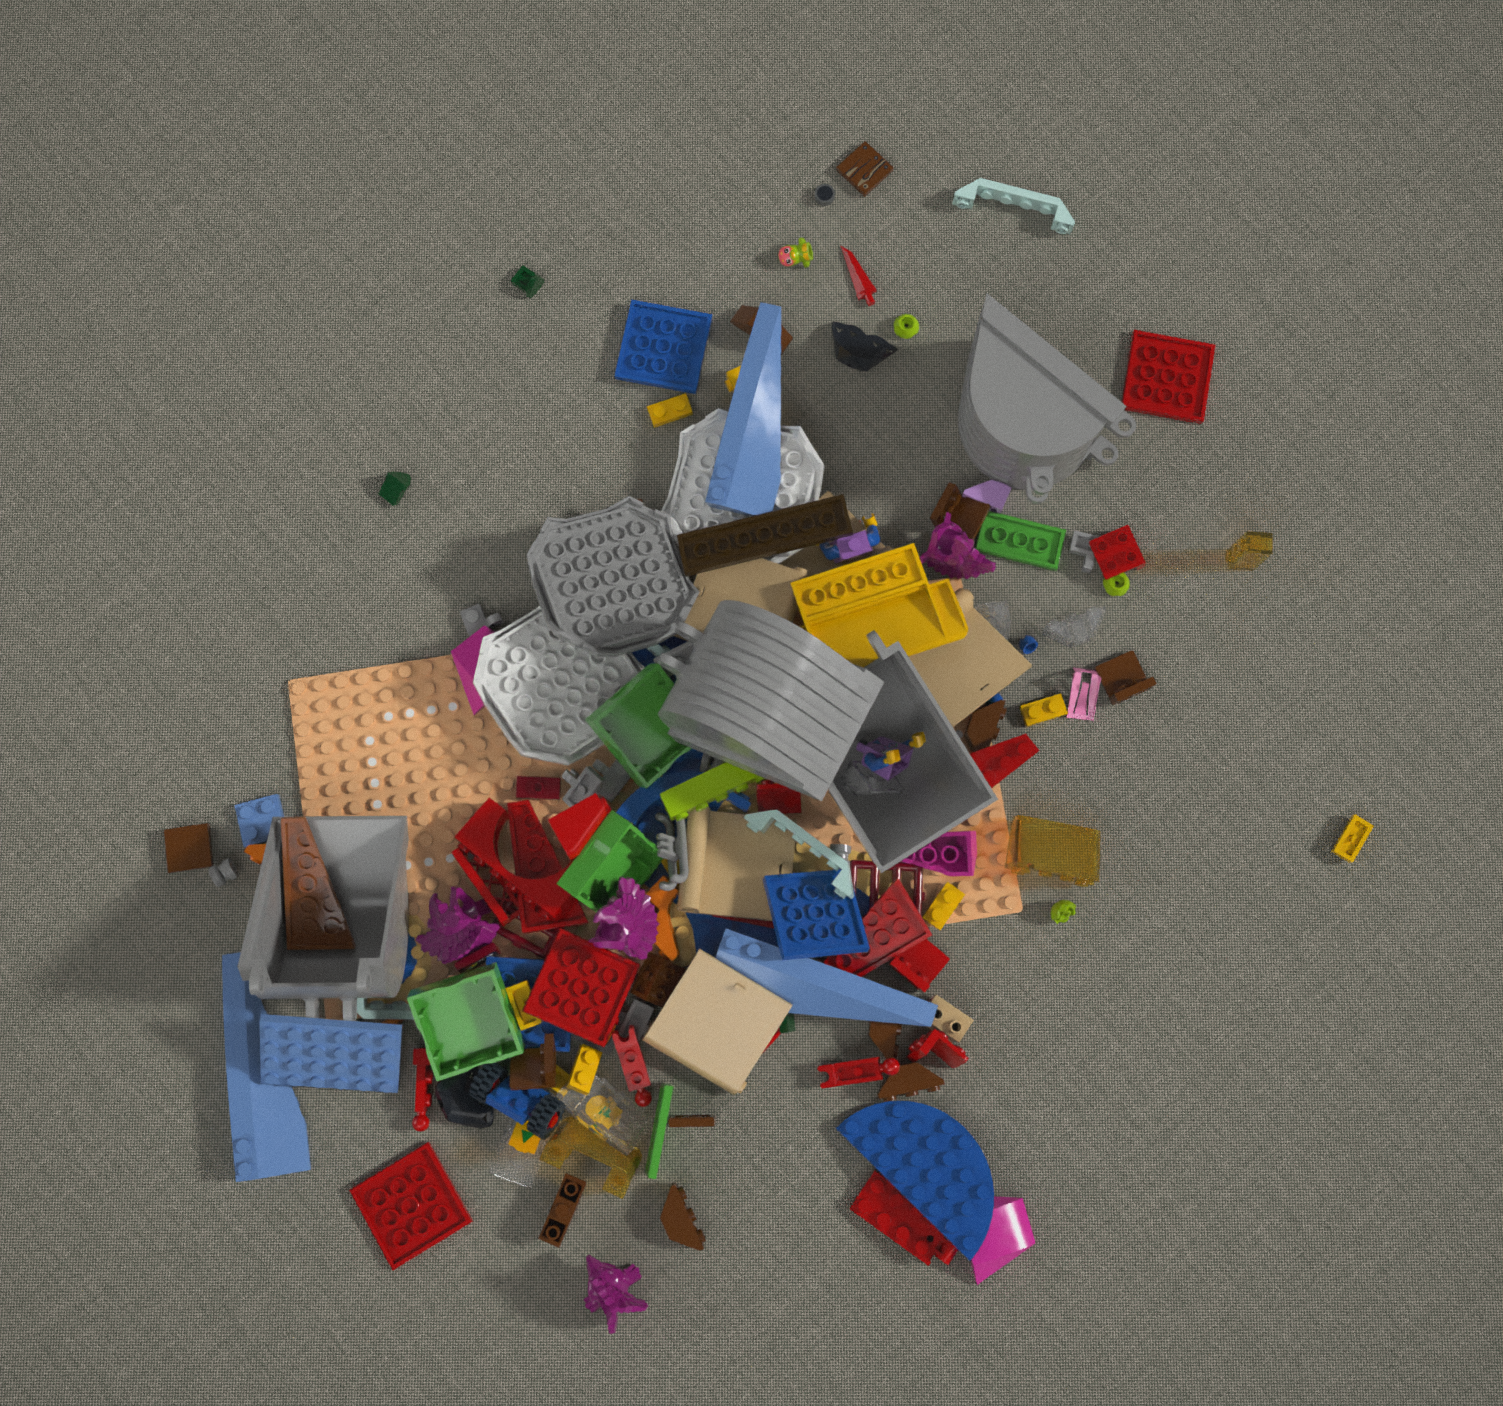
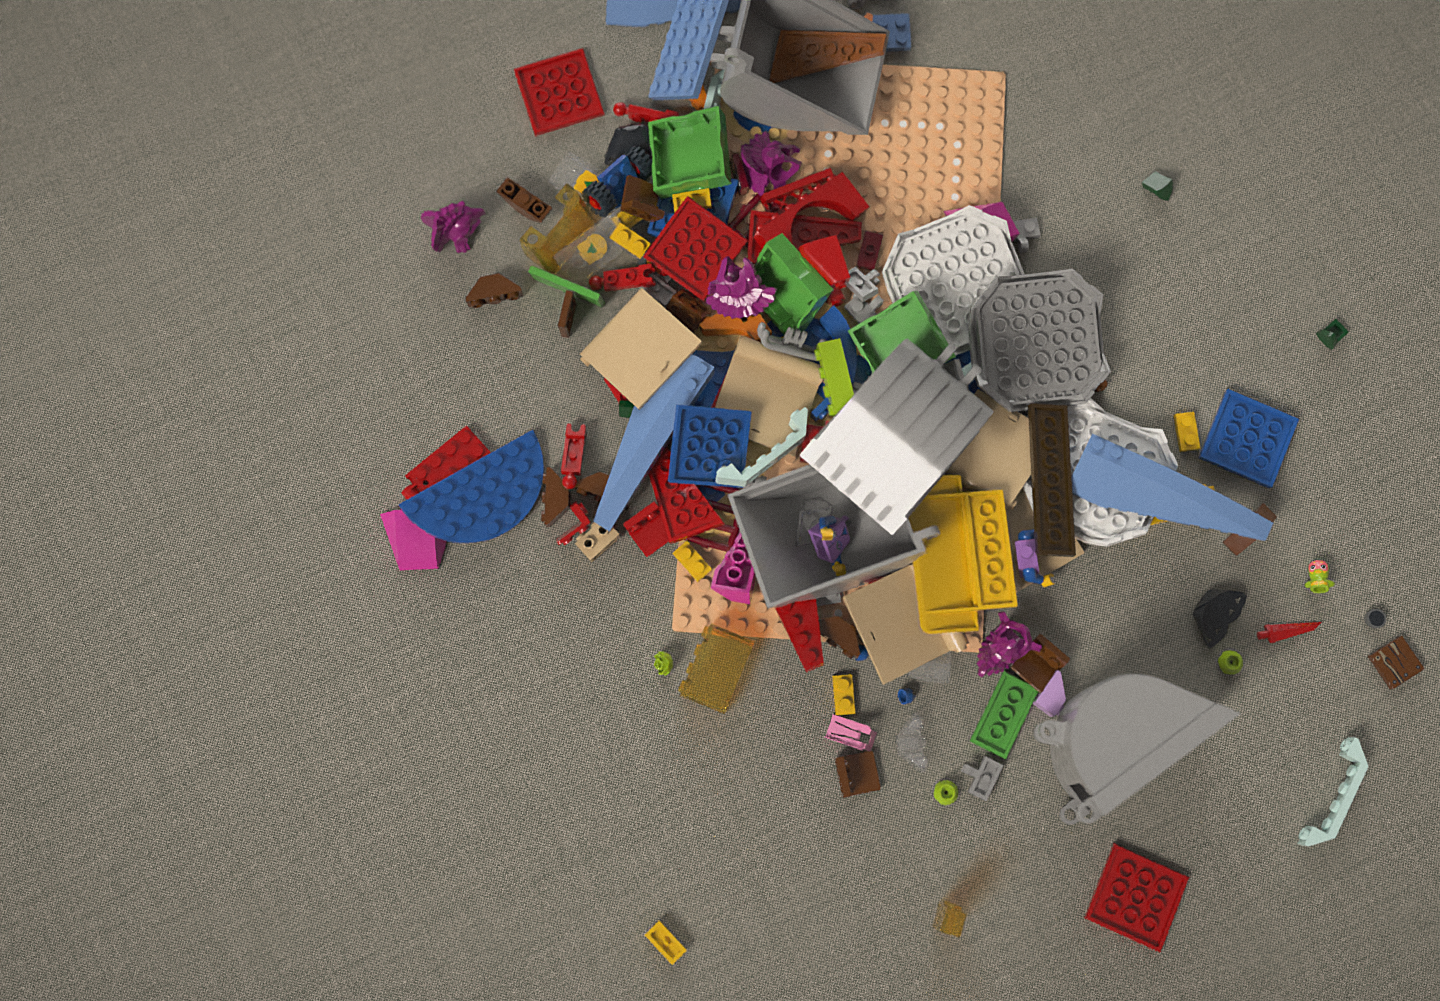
camera: 105 degrees right, 0 degrees up
(1117, 552) = (974, 799): red bracket -> none

